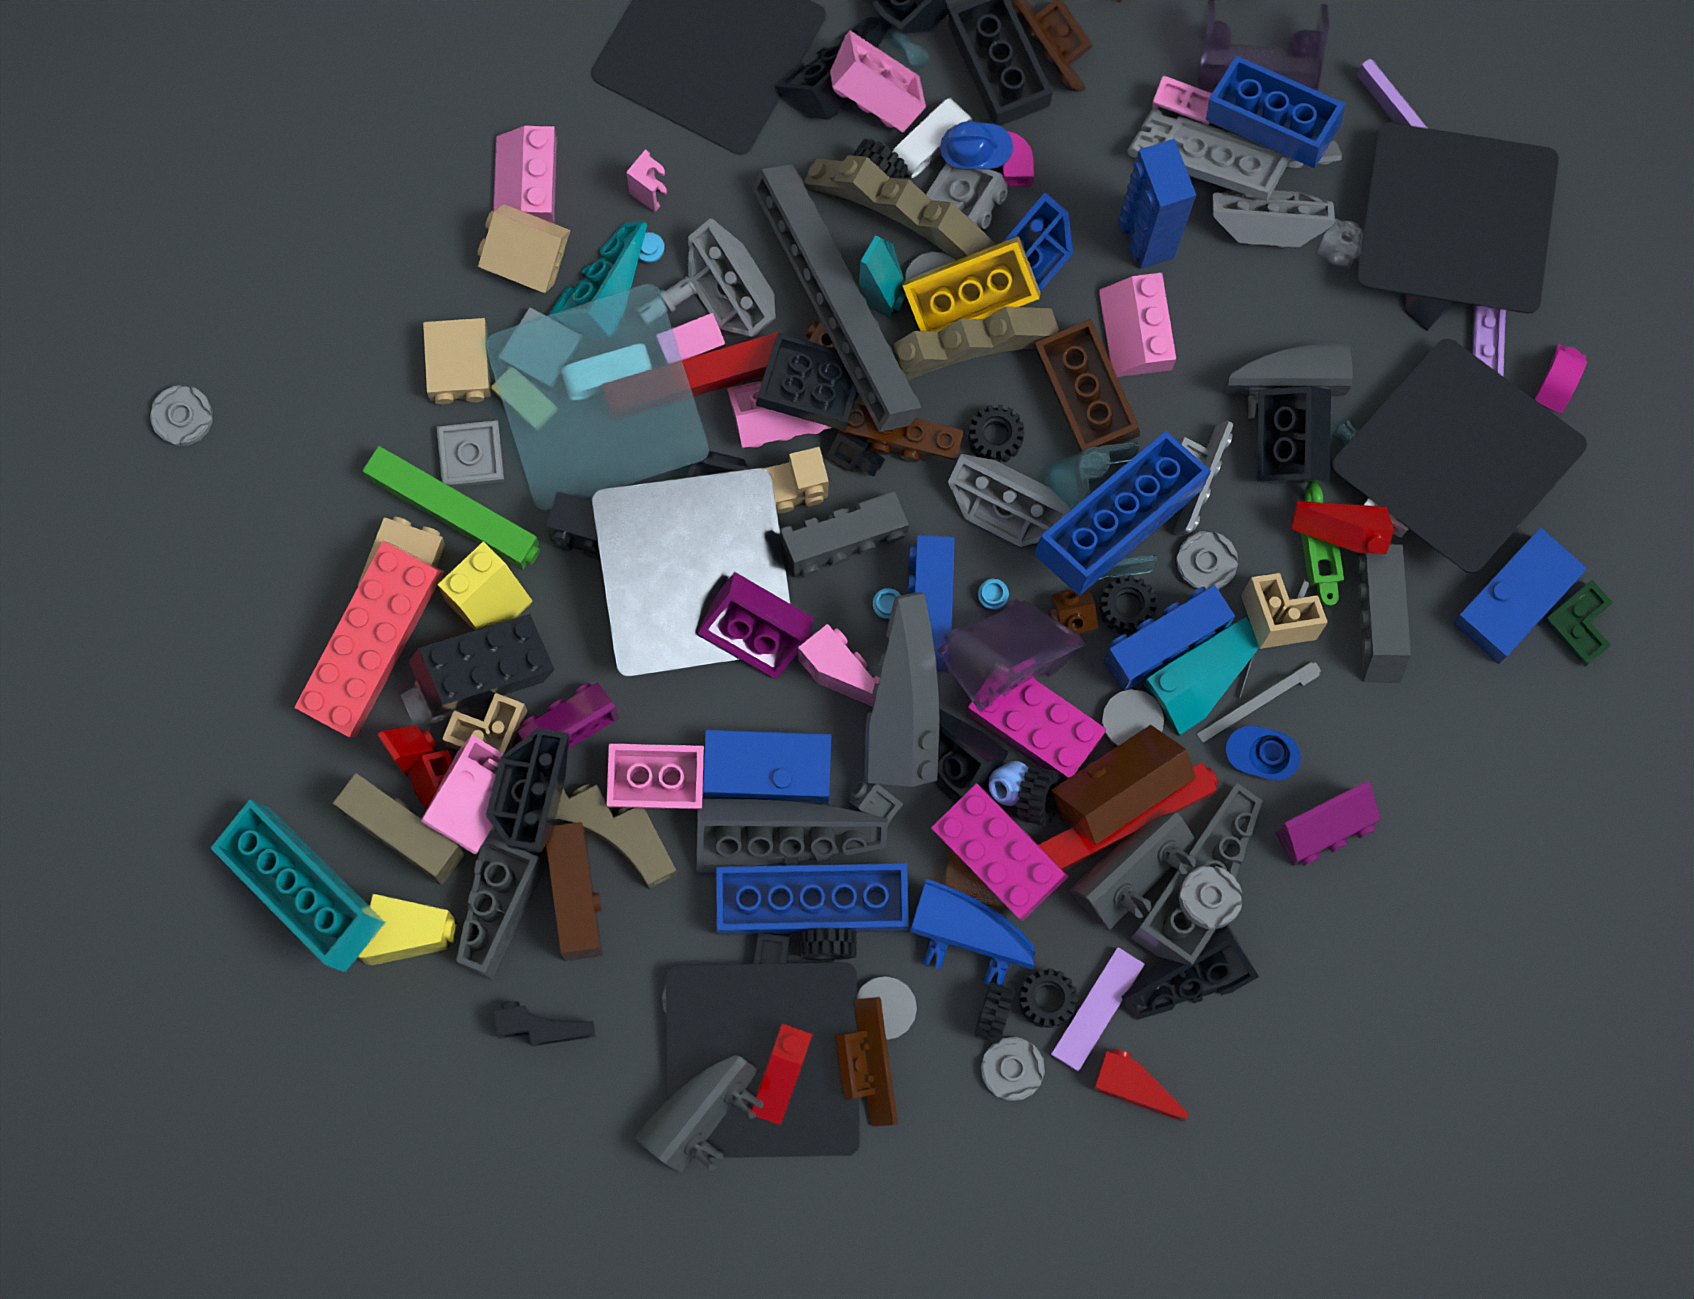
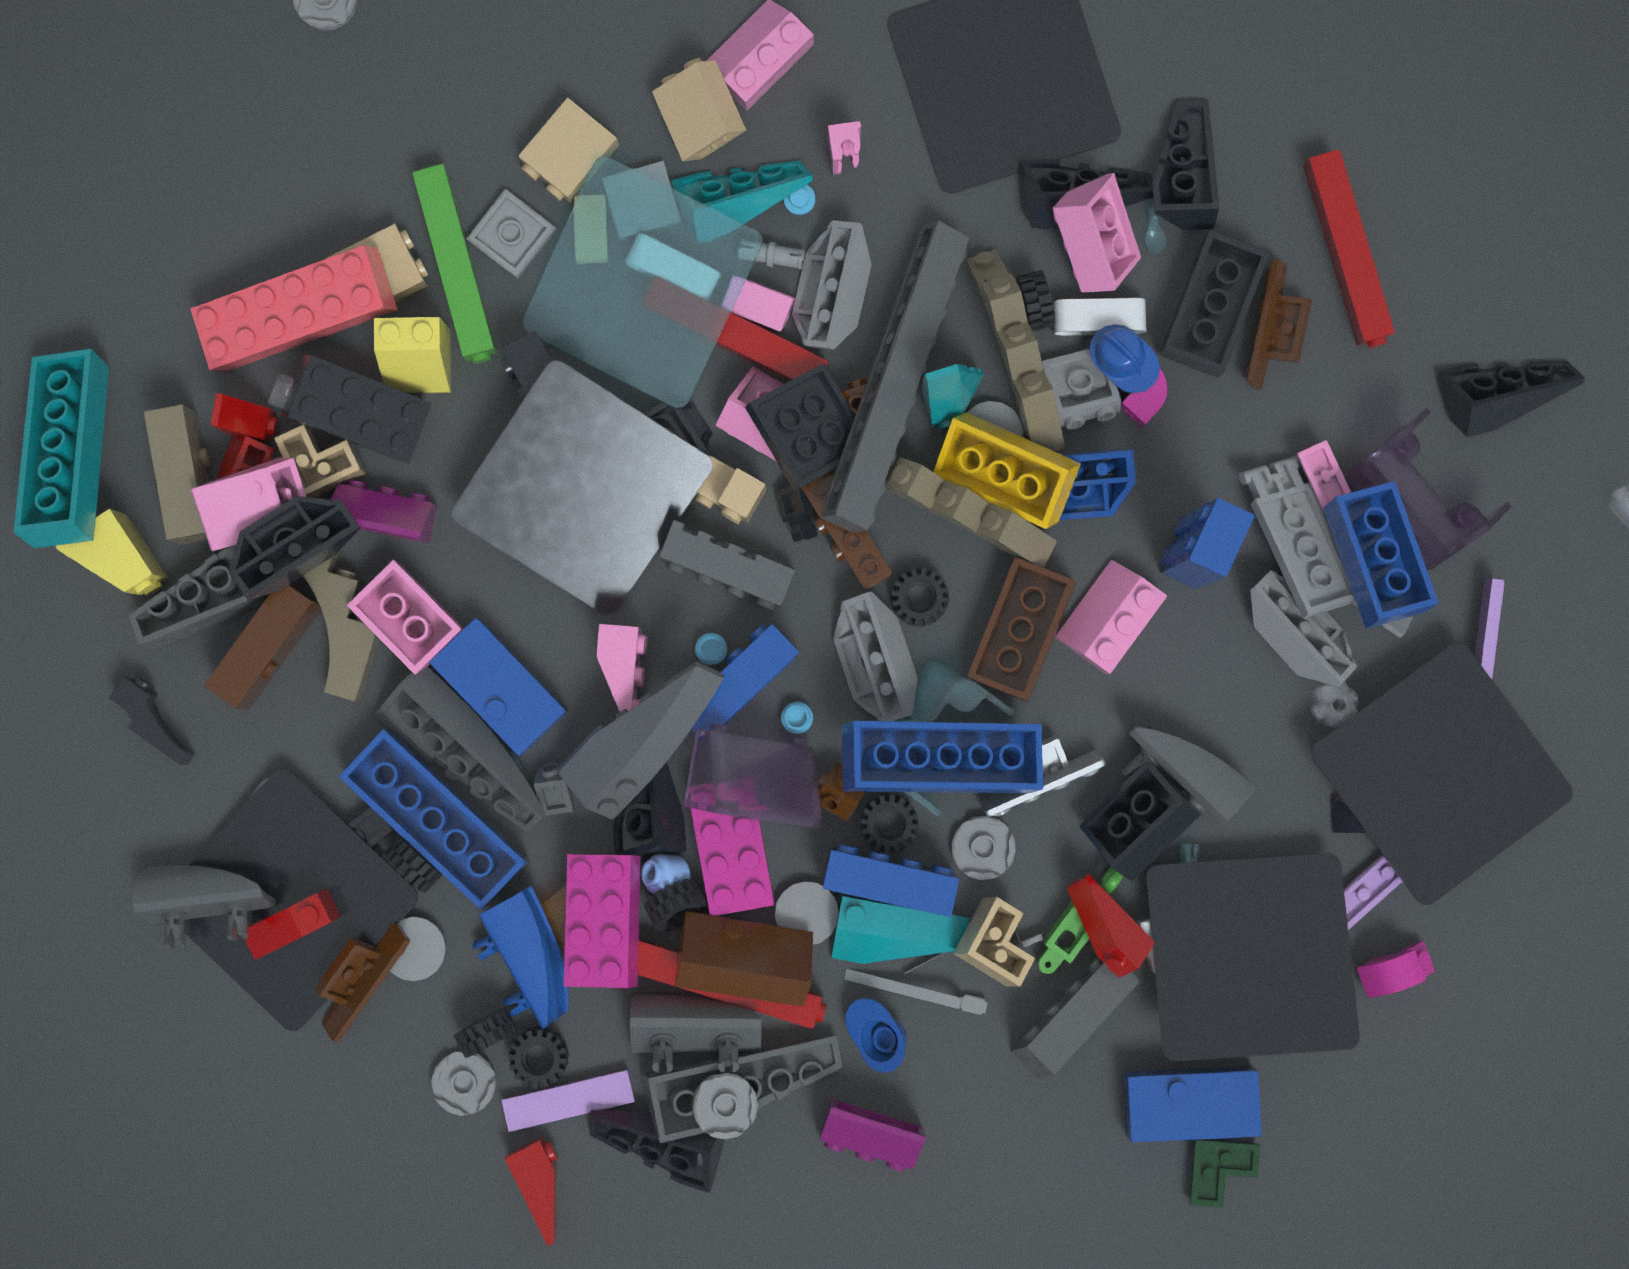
camera: 45 degrees right, 10 degrees up
(756, 625) = (591, 573): magenta slope -> none

